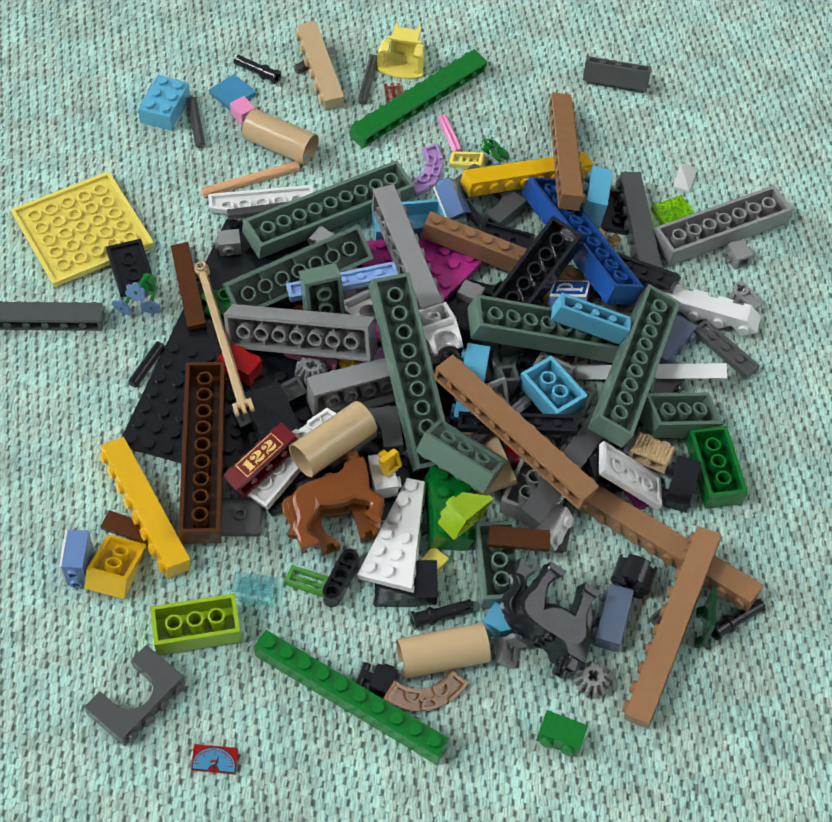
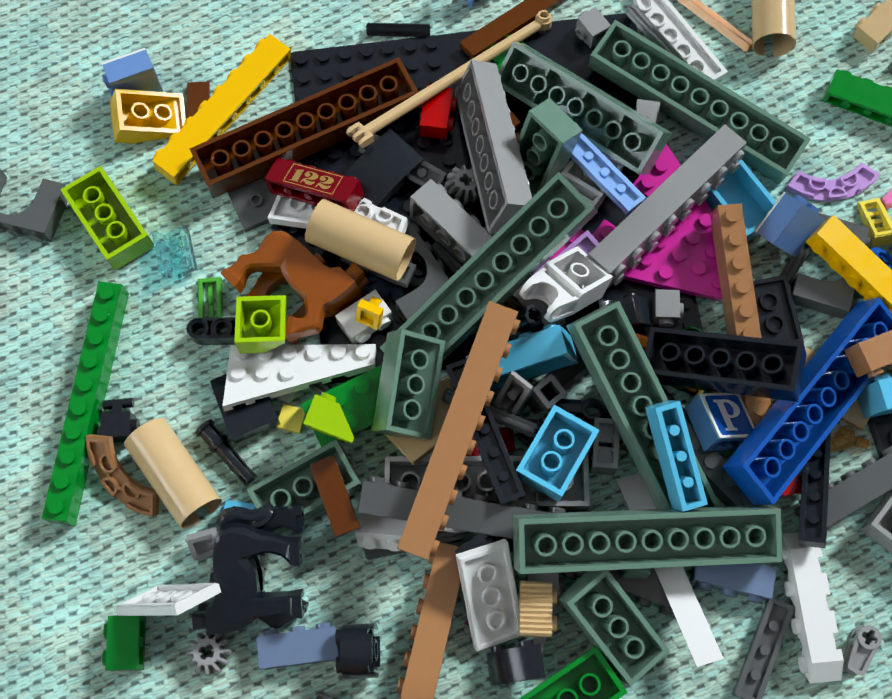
camera: 70 degrees right, 15 degrees up
(359, 535) = (260, 323): none -> lime slope
(549, 675) = (168, 599): none -> white tile

